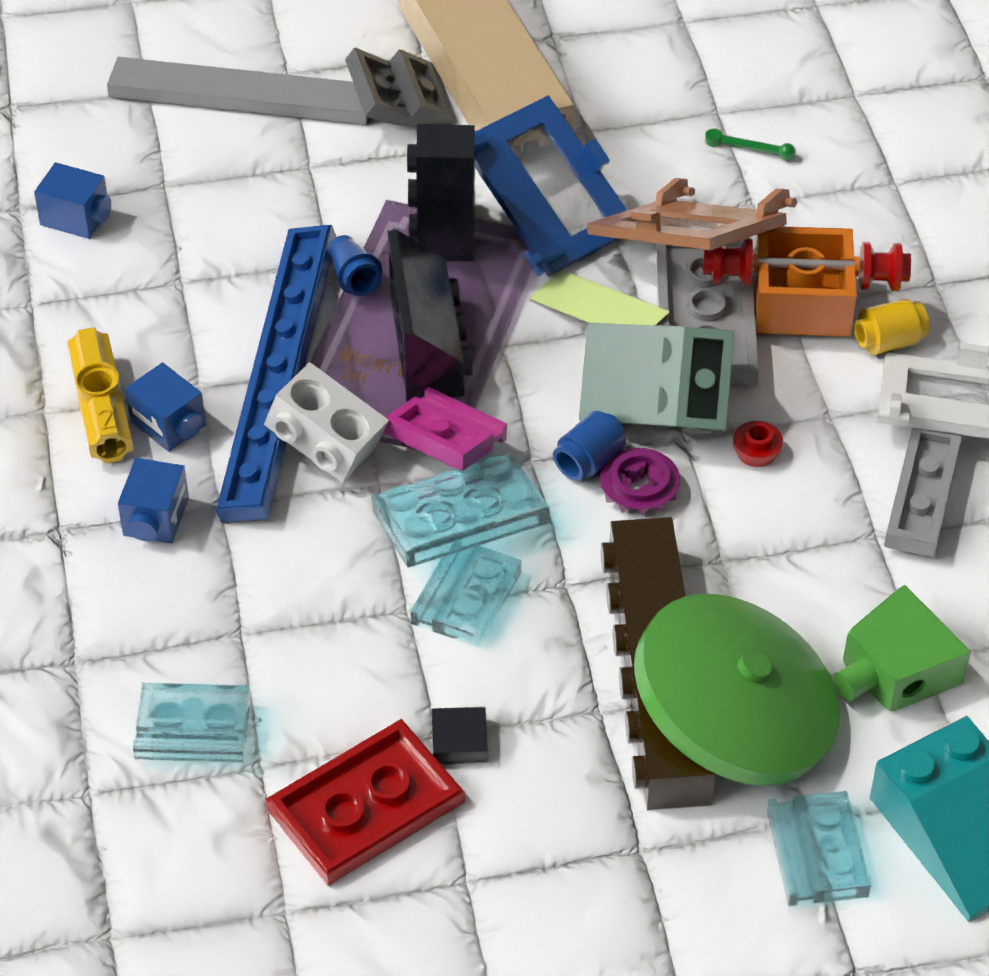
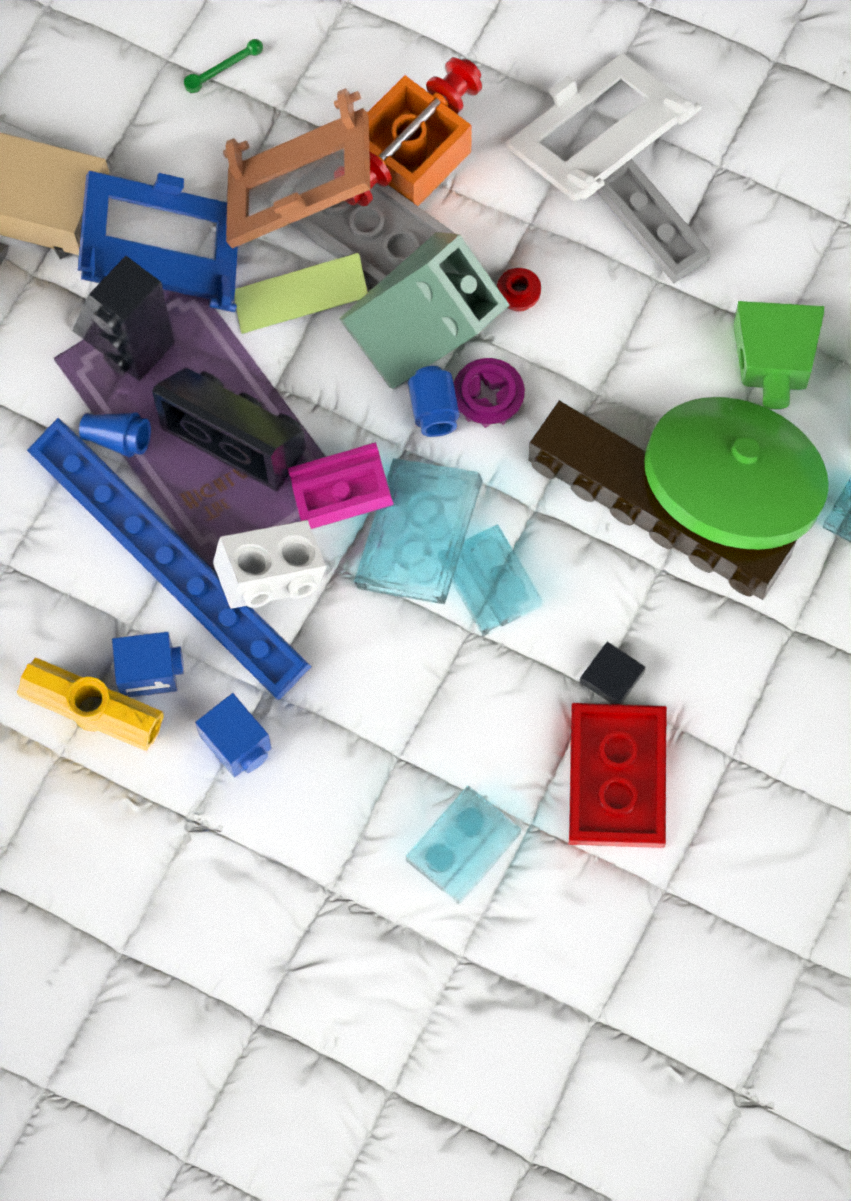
camera: 50 degrees left, 20 degrees up
(891, 326) = (493, 119): yellow brick -> none

